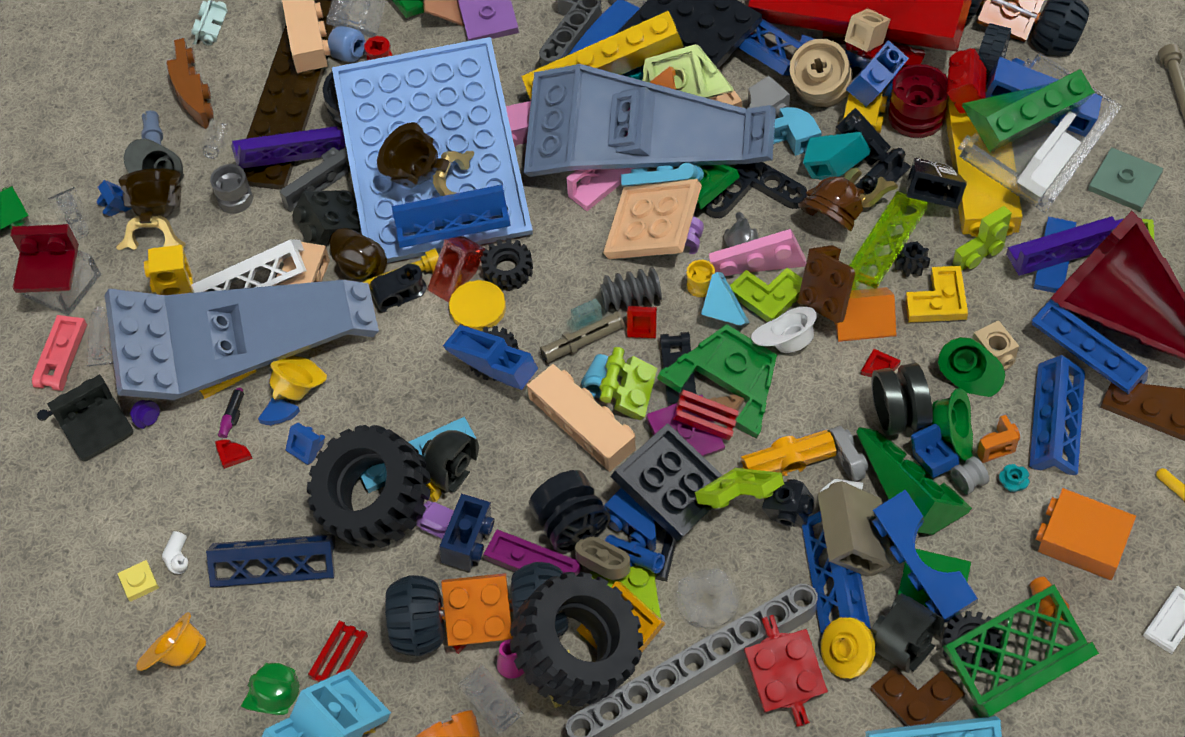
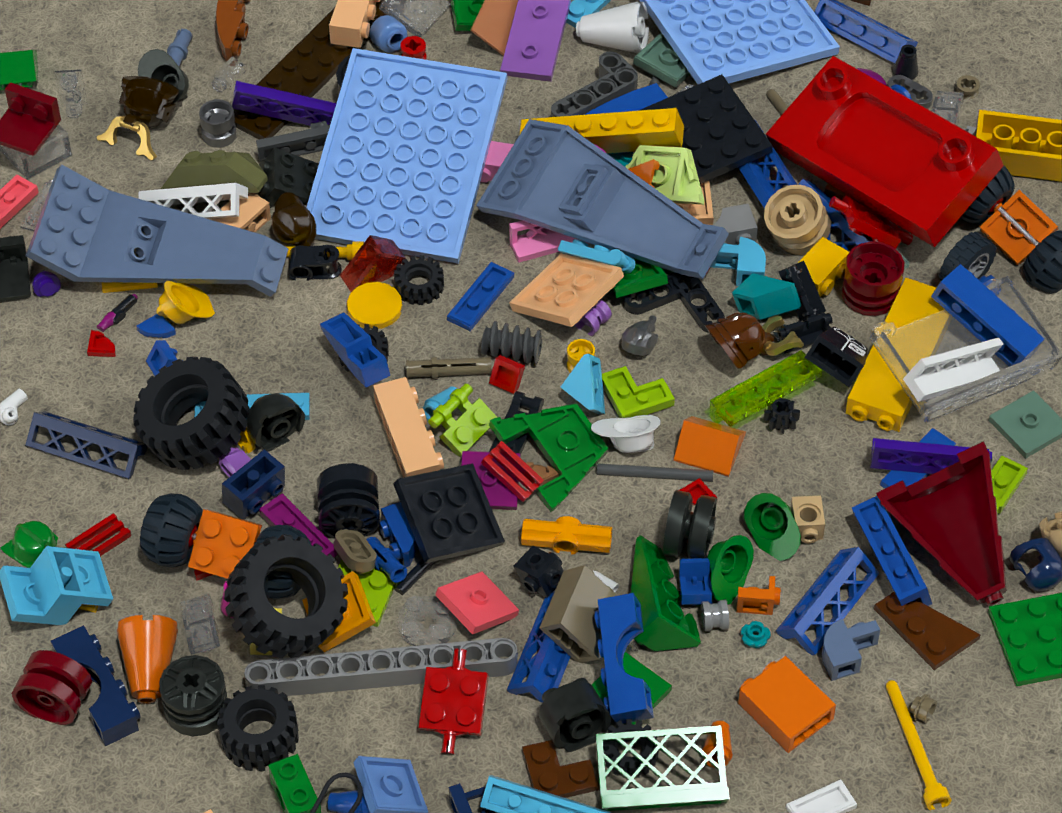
camera: 20 degrees right, 5 degrees down
(112, 197) = (112, 93): blue tile -> none
(168, 270) = (125, 171): yellow brick -> none
(256, 235) = (217, 168): none -> olive wedge
(412, 159) = (378, 155): dark brown helmet -> none
(450, 213) = (390, 215): blue fence -> none
(571, 257) = (480, 296): none -> blue tile
(586, 314) = (461, 347): clear light blue tile -> none
(737, 483) = (503, 537): lime plate -> none
(745, 559) = (477, 602): none -> coral plate
(761, 254) = (645, 357): bright pink wing -> none
(826, 283) = (681, 399): reddish brown bracket -> none
(829, 360) = (654, 472): none -> dark grey bar
(847, 647) = (518, 706): yellow wheel -> none
(851, 461) = (619, 564): light grey plate -> none
(867, 29) = (851, 193): tan brick -> none
(877, 73) = (841, 237): blue slope -> none
(944, 303) = (788, 464): yellow plate -> none
(966, 78) = (920, 274): red brick -> none
(989, 240) = (860, 426): lime plate -> none
(1016, 113) = (948, 321): green wedge -> none
(1100, 459) = (841, 647): none -> sand blue brick

